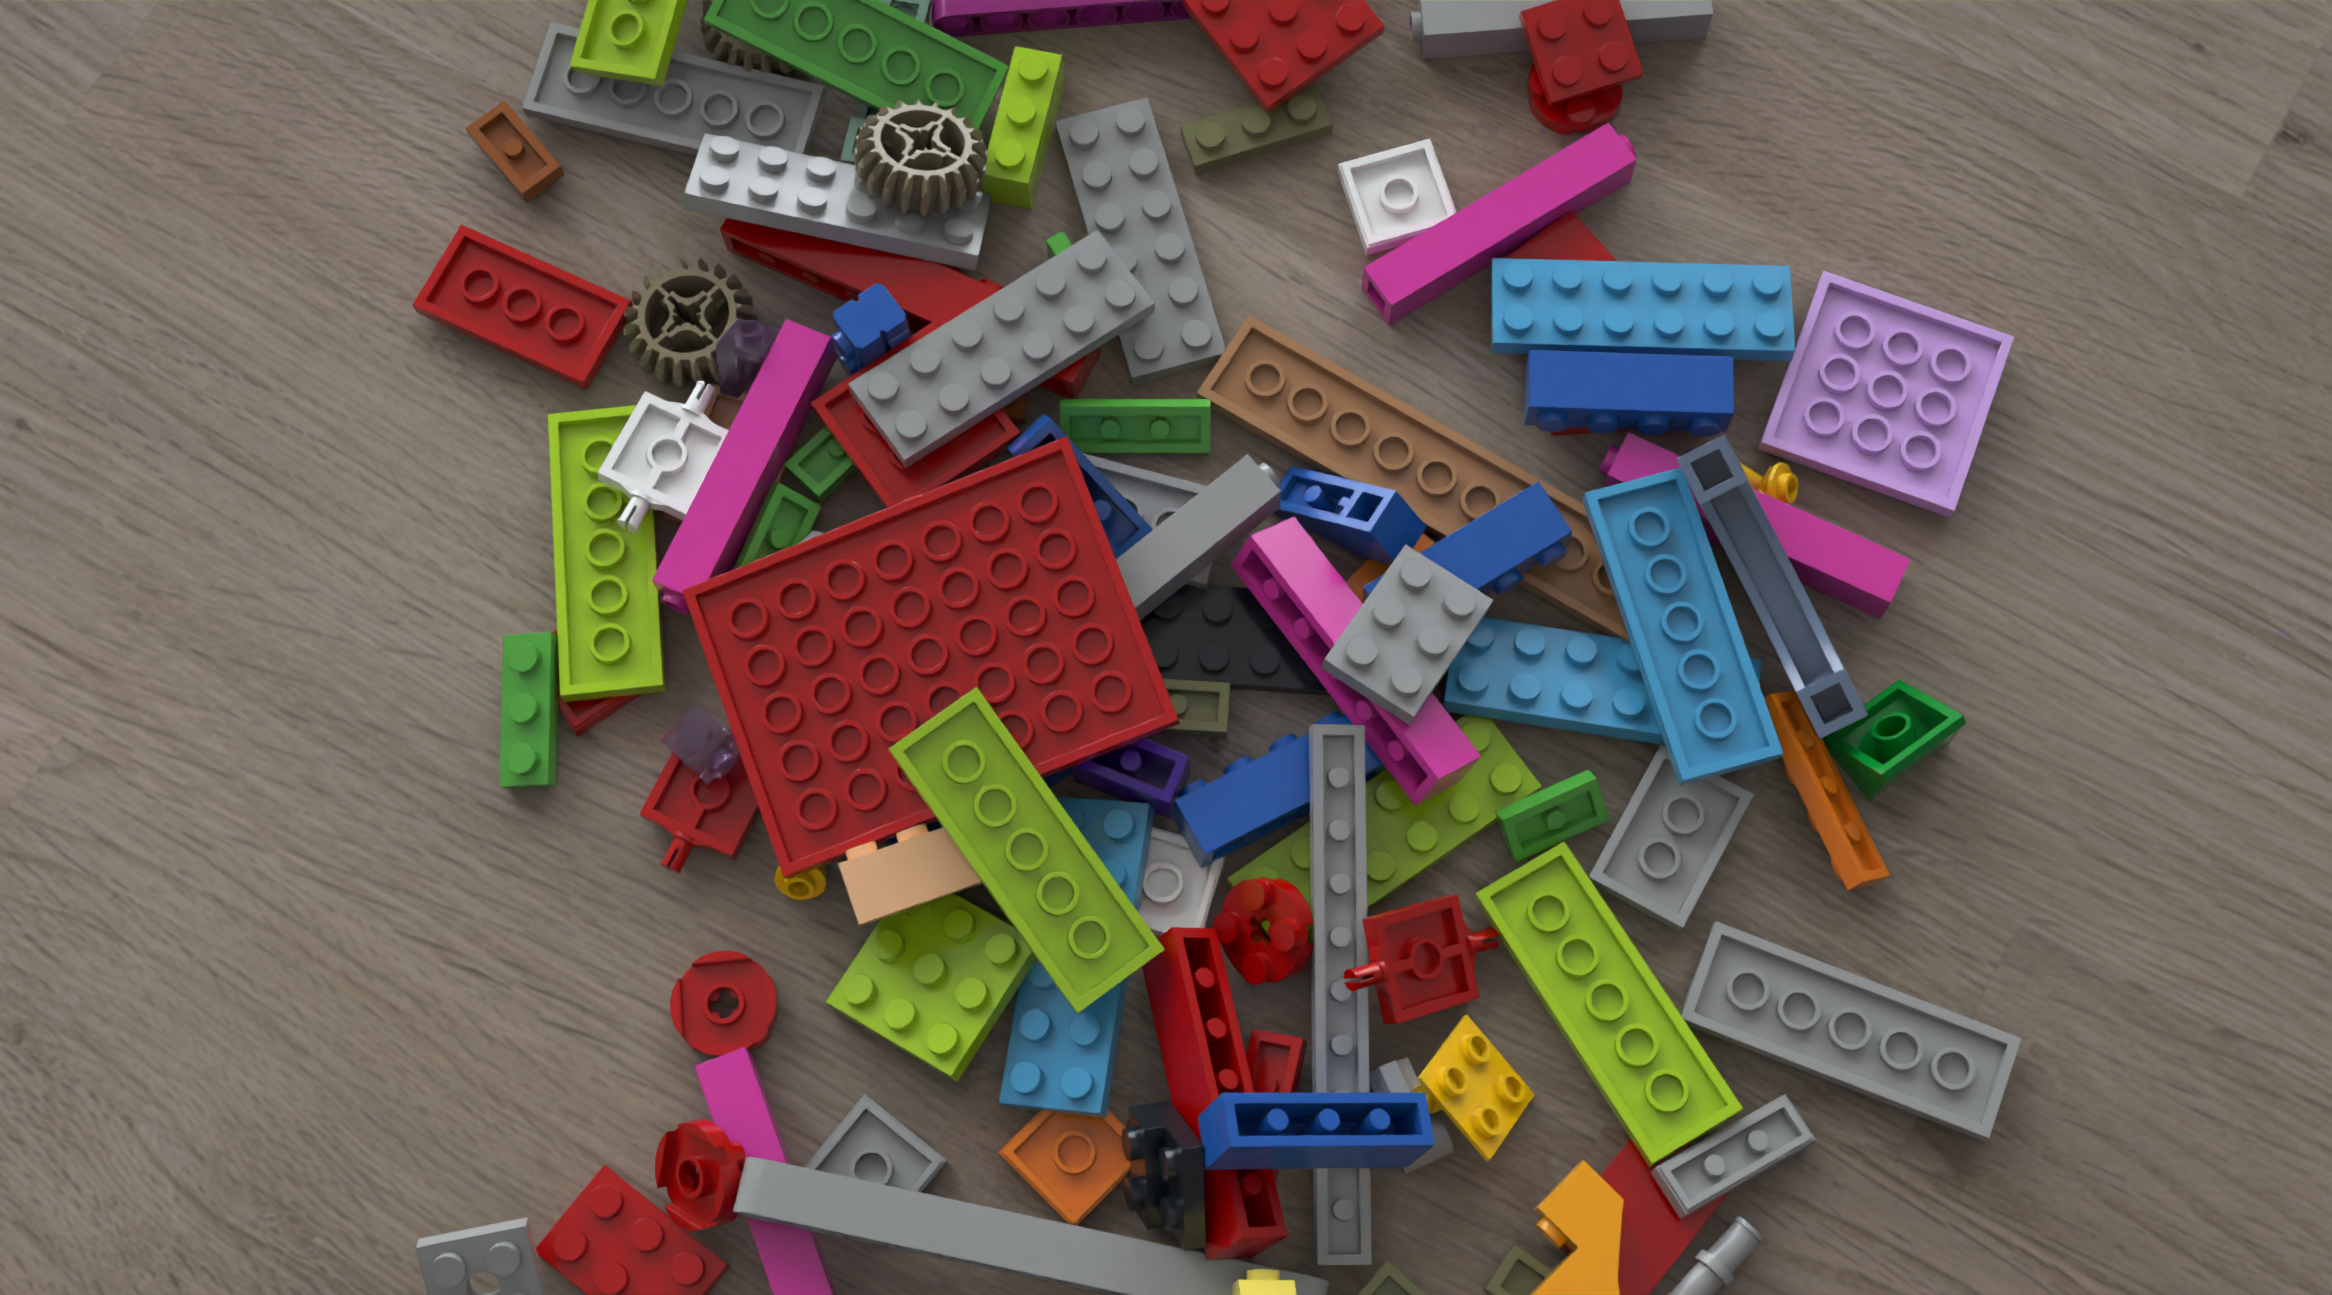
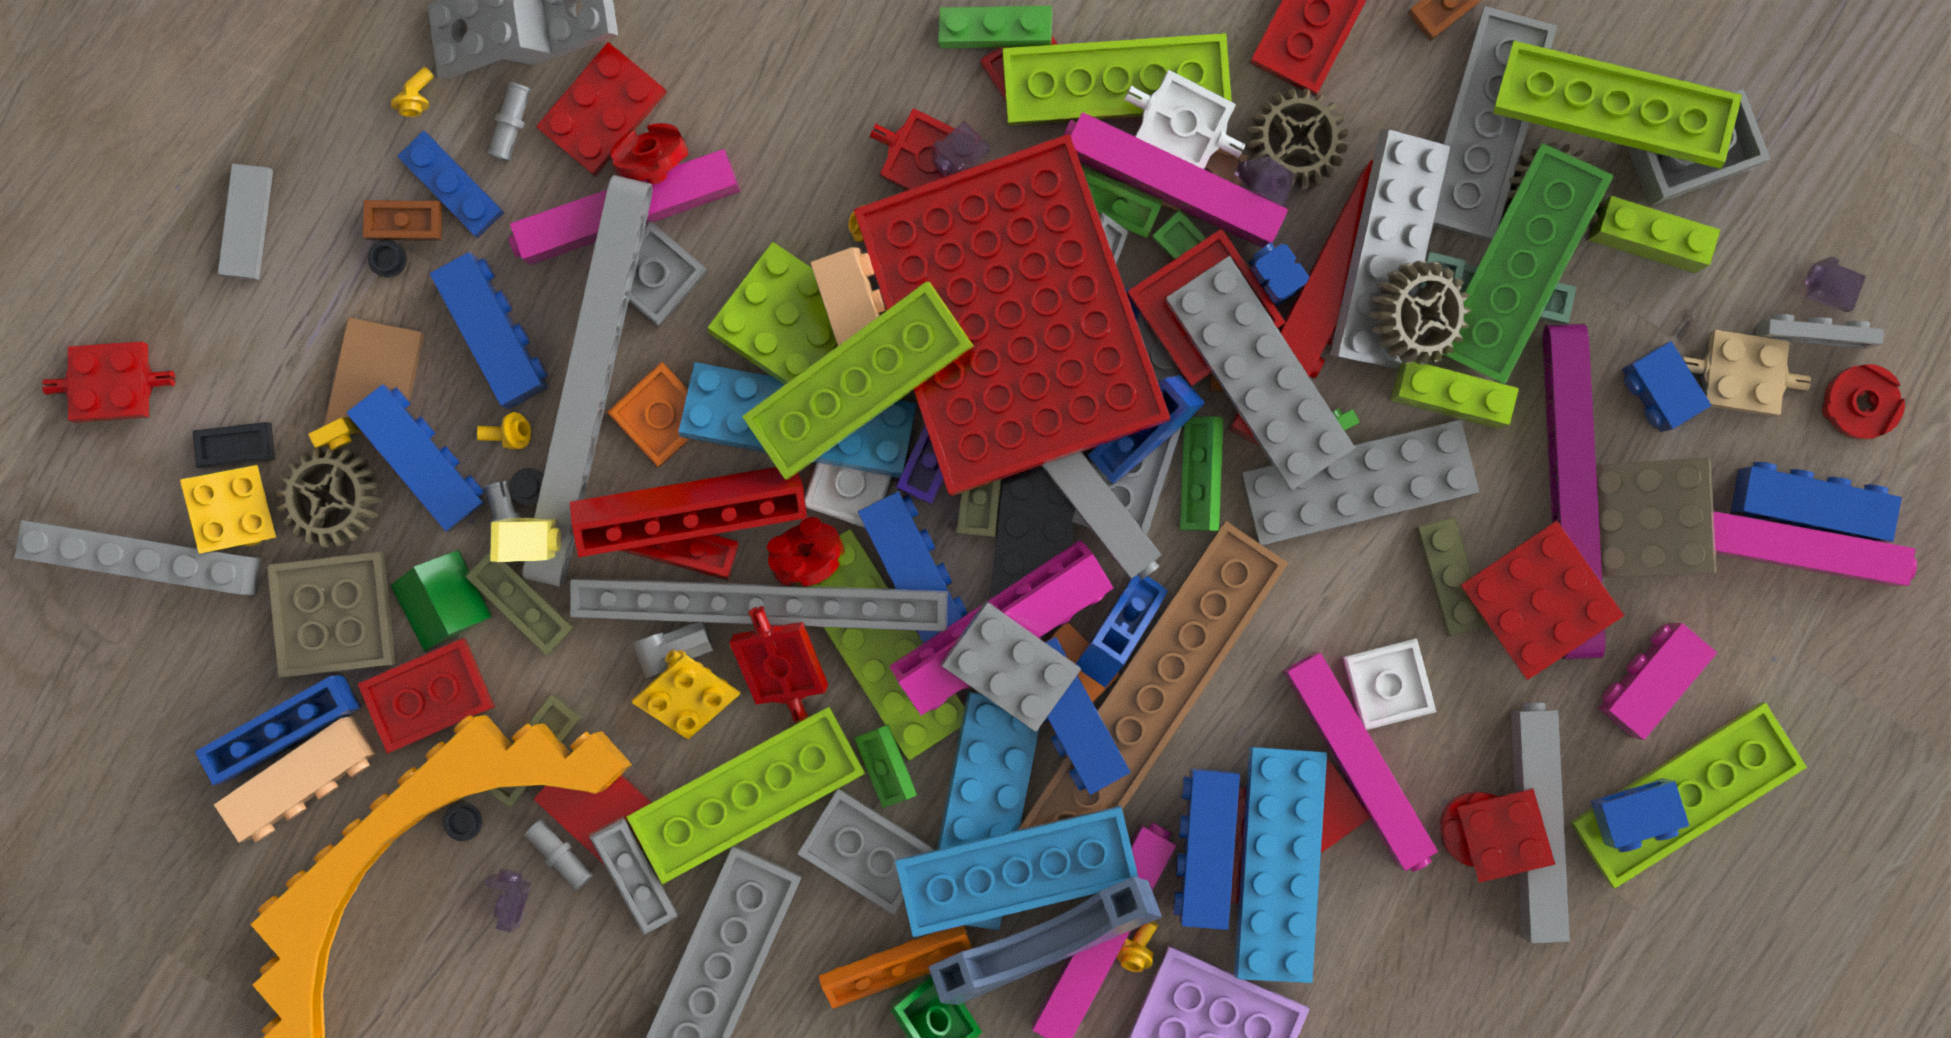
camera: 90 degrees right, 15 degrees up
(702, 984) = (757, 156): red plate -> none
(1165, 1172) = (631, 474): black plate -> none
(1315, 1130) = (644, 579): blue brick -> none

